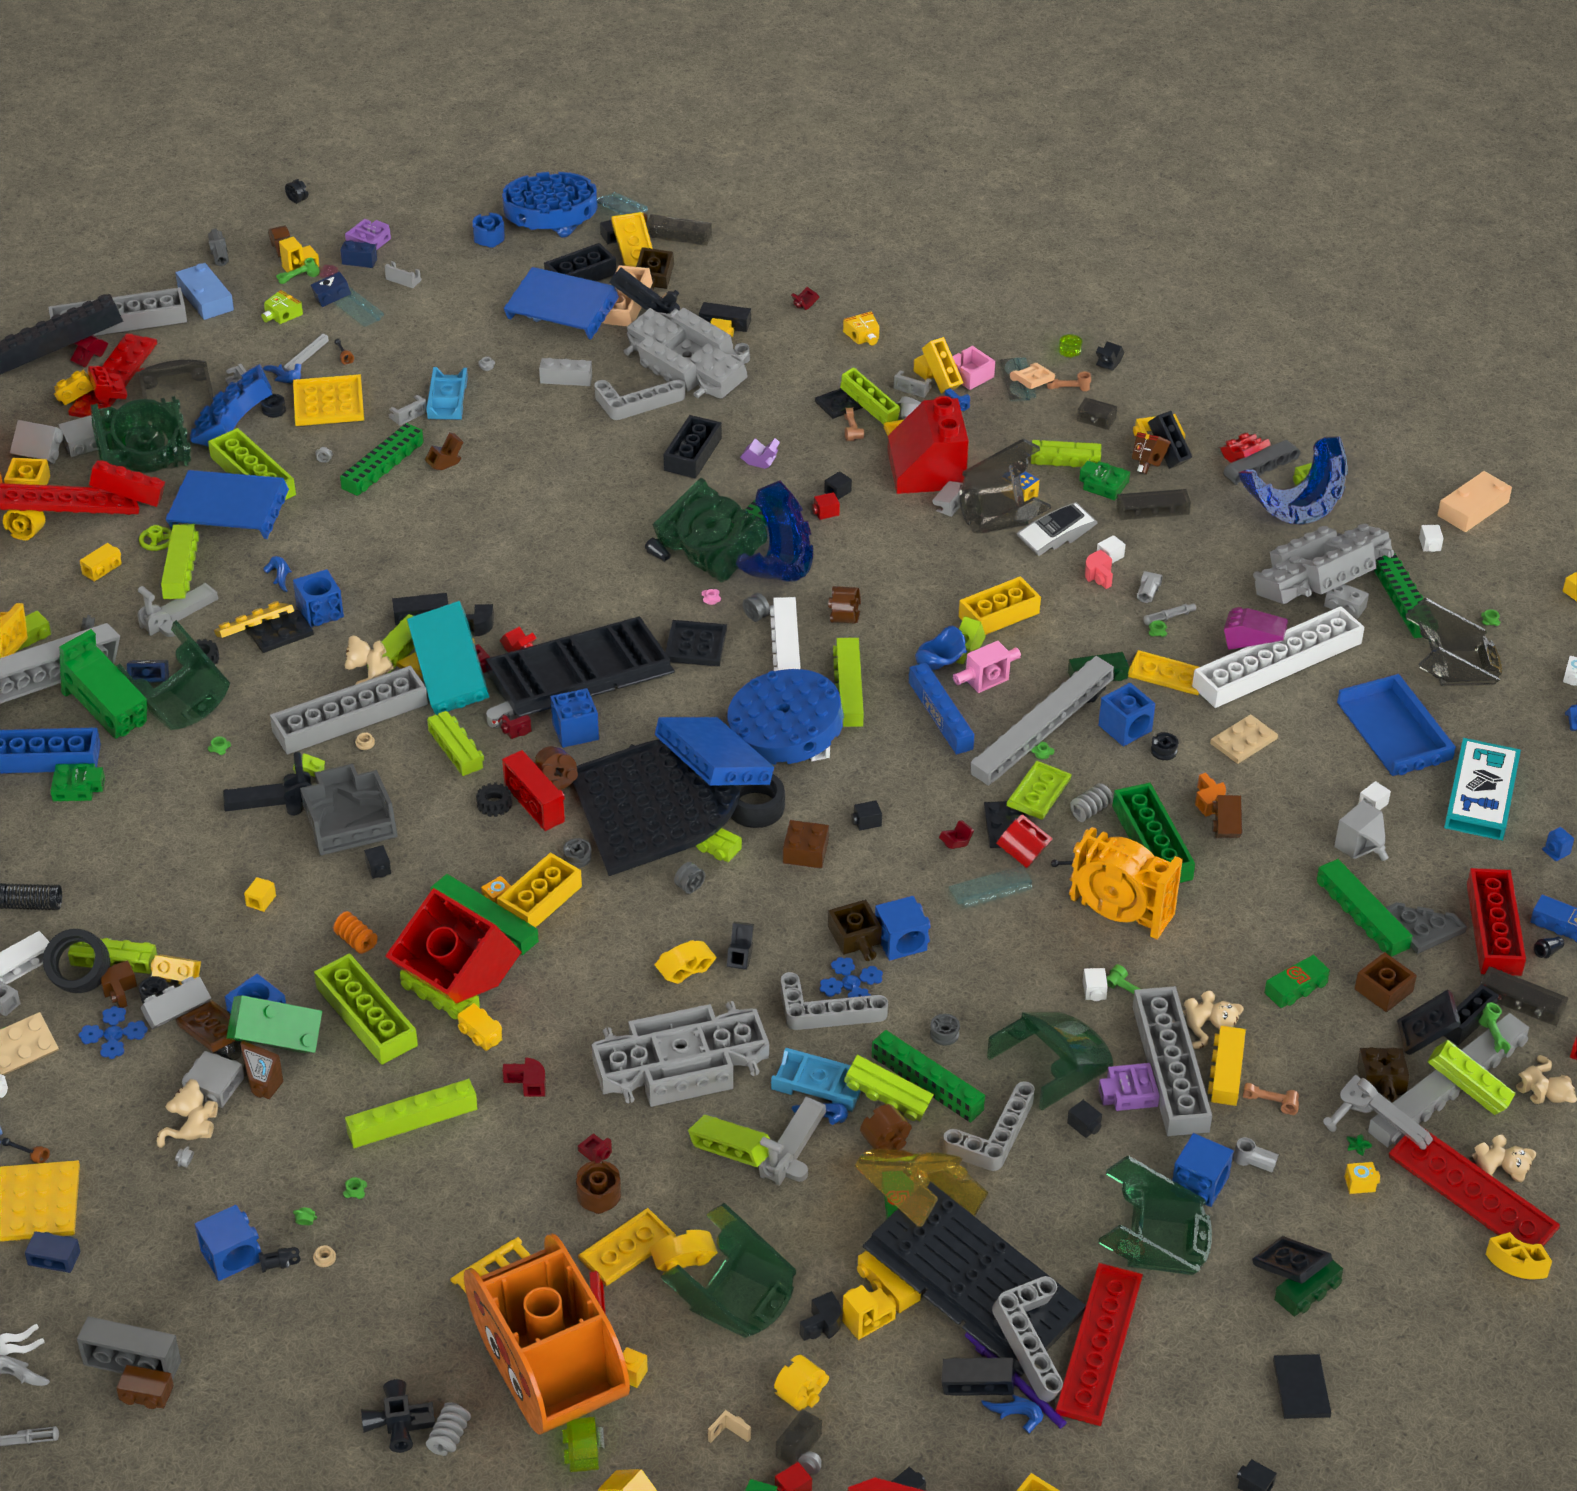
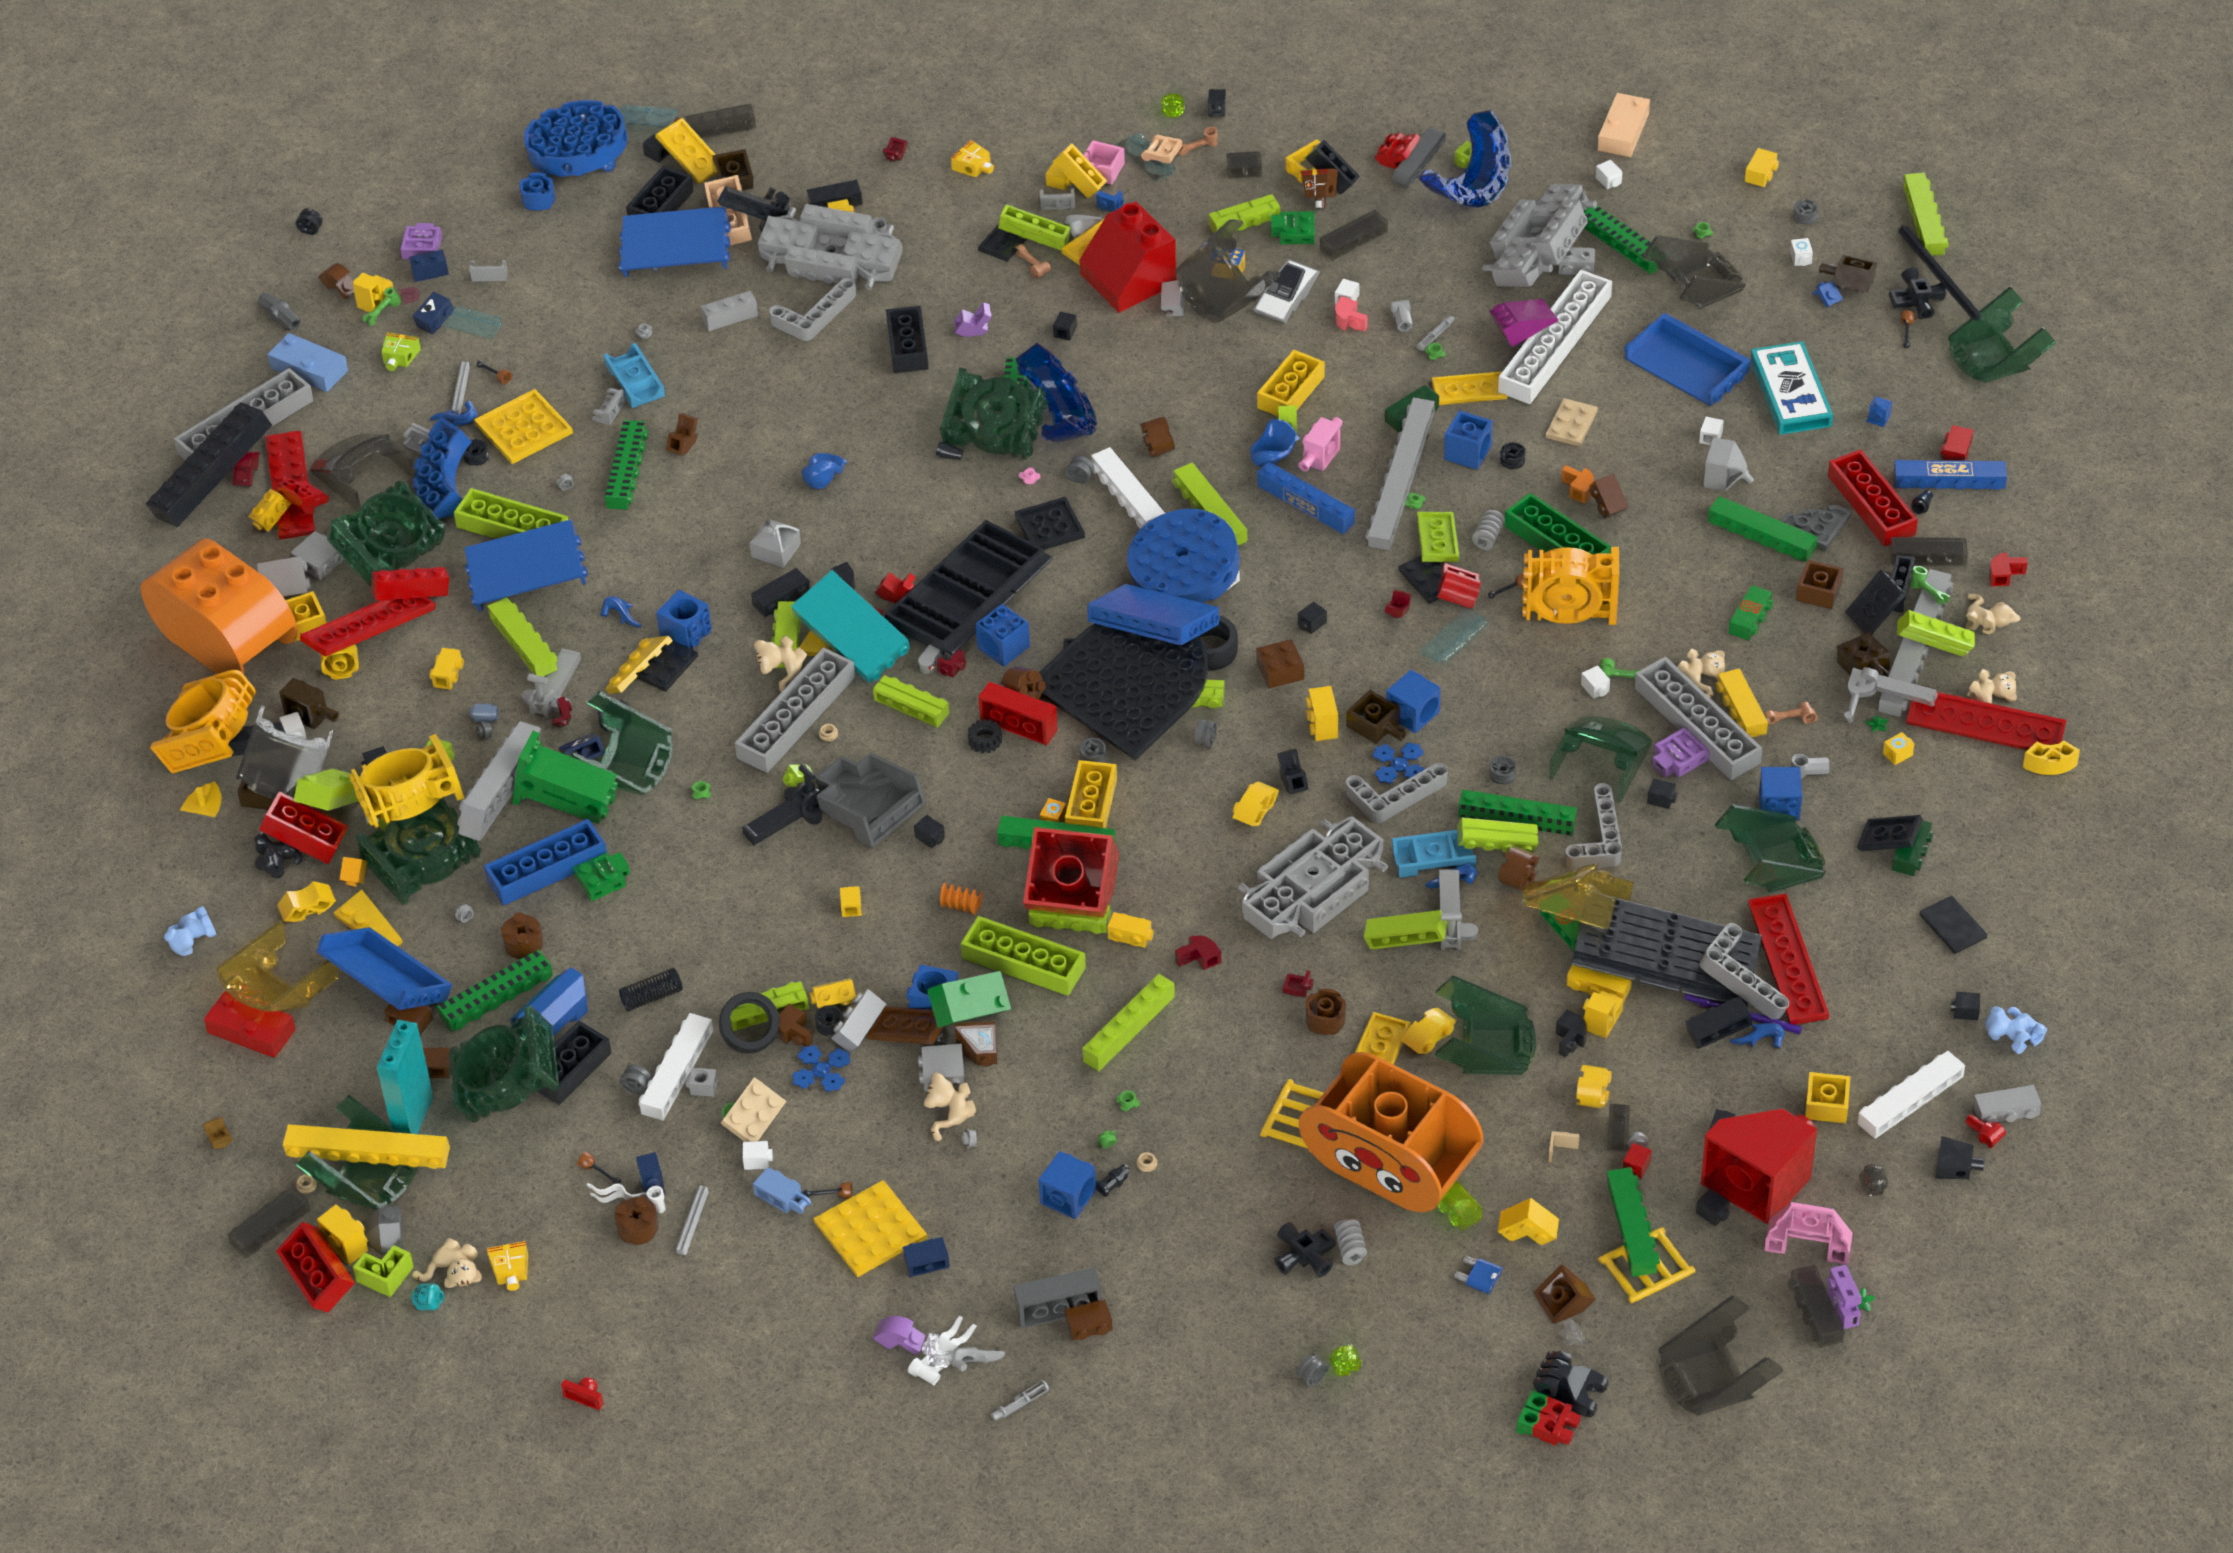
camera: 25 degrees left, 5 degrees up
(100, 609) = (484, 712): none -> sand blue brick
(156, 534) = (473, 621): lime piece -> none
(162, 634) = (564, 709): none -> dark red bracket
(448, 566) = (775, 543): none -> light grey piece
(535, 523) = (822, 469): none -> blue piece
(807, 904) = (1322, 713): none -> yellow brick
(826, 506) = (1069, 349): red brick -> none

